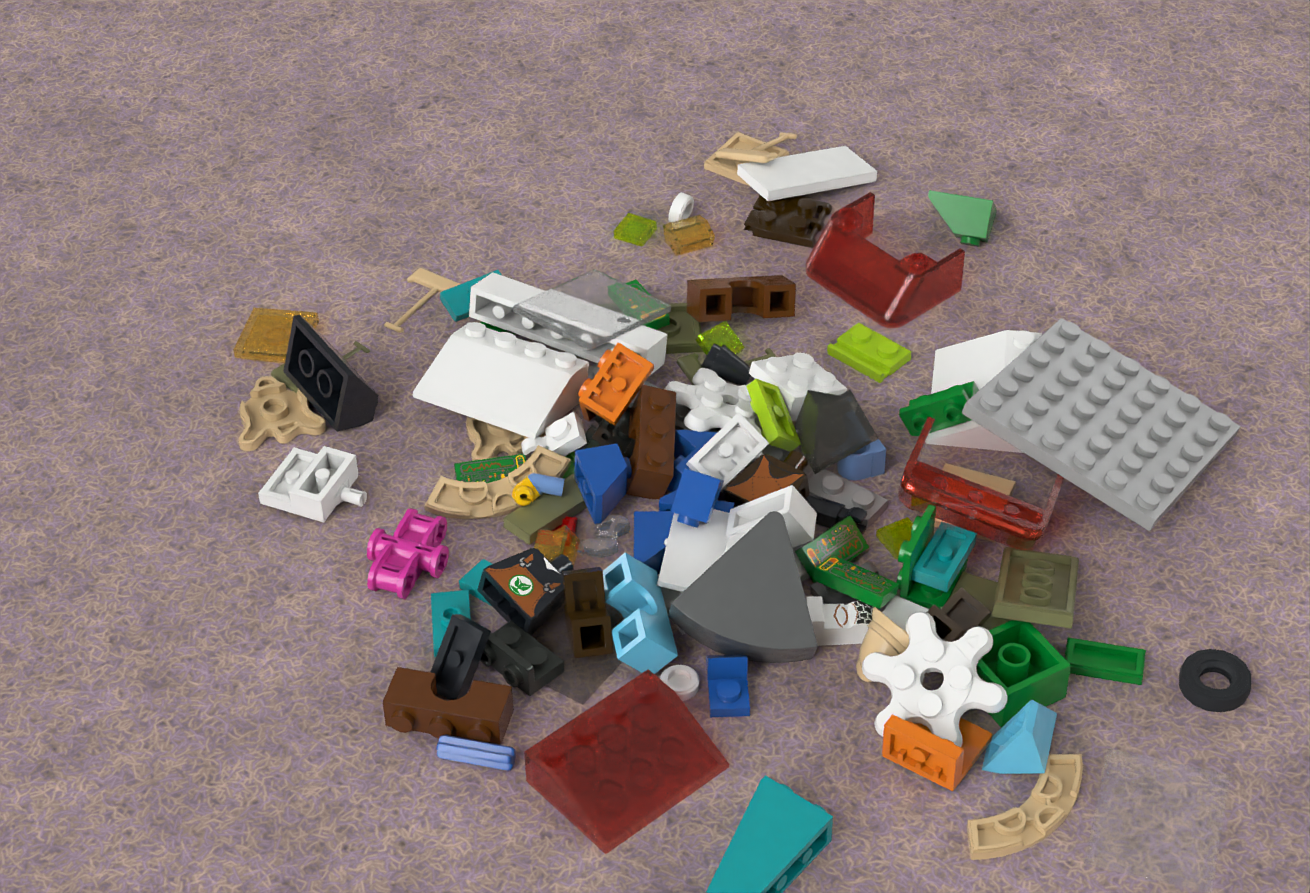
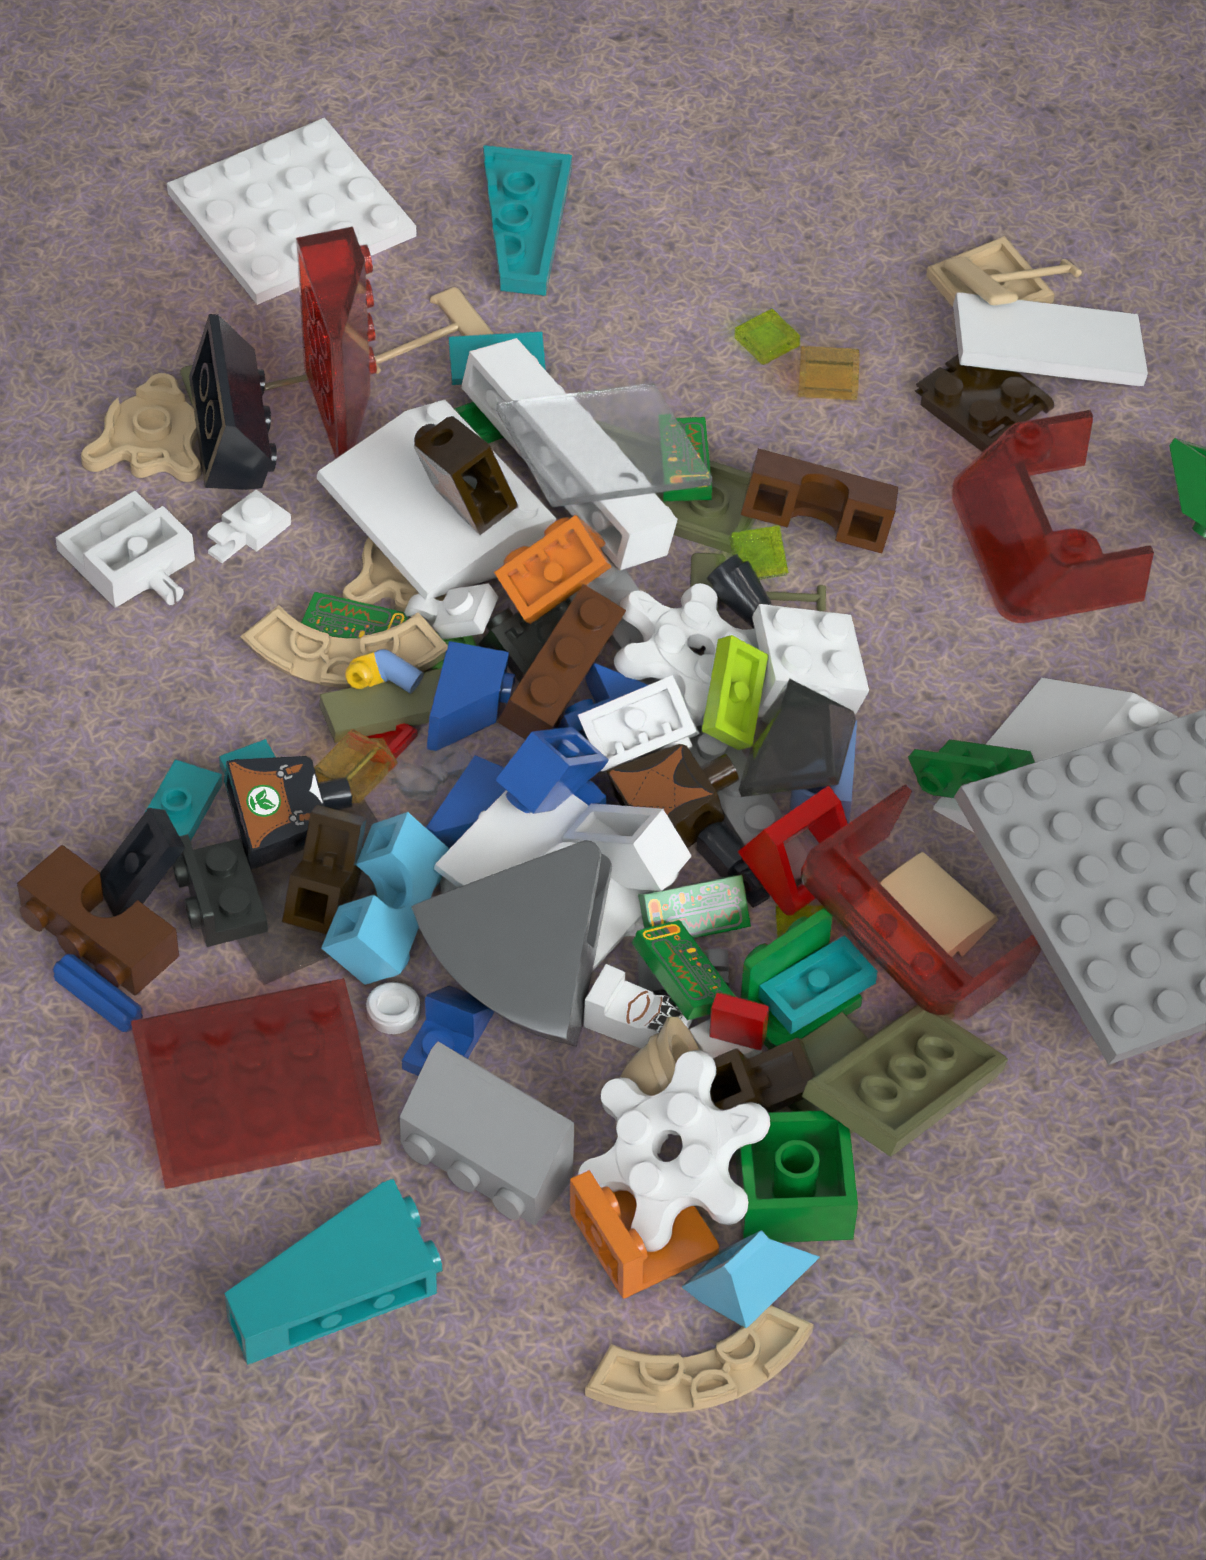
camera: 25 degrees right, 10 degrees up
(268, 334) = (219, 294): clear yellow tile -> none
(281, 260) = (285, 190): none -> white plate
(380, 441) = (248, 522): none -> white plate
(381, 303) = (337, 330): none -> clear red slope
(407, 553) = (180, 693): dark pink axle -> none
(437, 212) = (526, 213): none -> teal wing
(523, 347) = (455, 451): none -> dark brown torso
(681, 207) = (844, 328): white tile -> none
(805, 723) = (487, 1135): none -> light grey slope
(862, 494) = (767, 854): none -> red tile
(869, 352) = (949, 646): lime plate -> none
(911, 596) = (739, 1021): none -> red tile
(1105, 661) = (938, 1213): green tile -> none
(1209, 698) = (1063, 1273): black tyre -> none

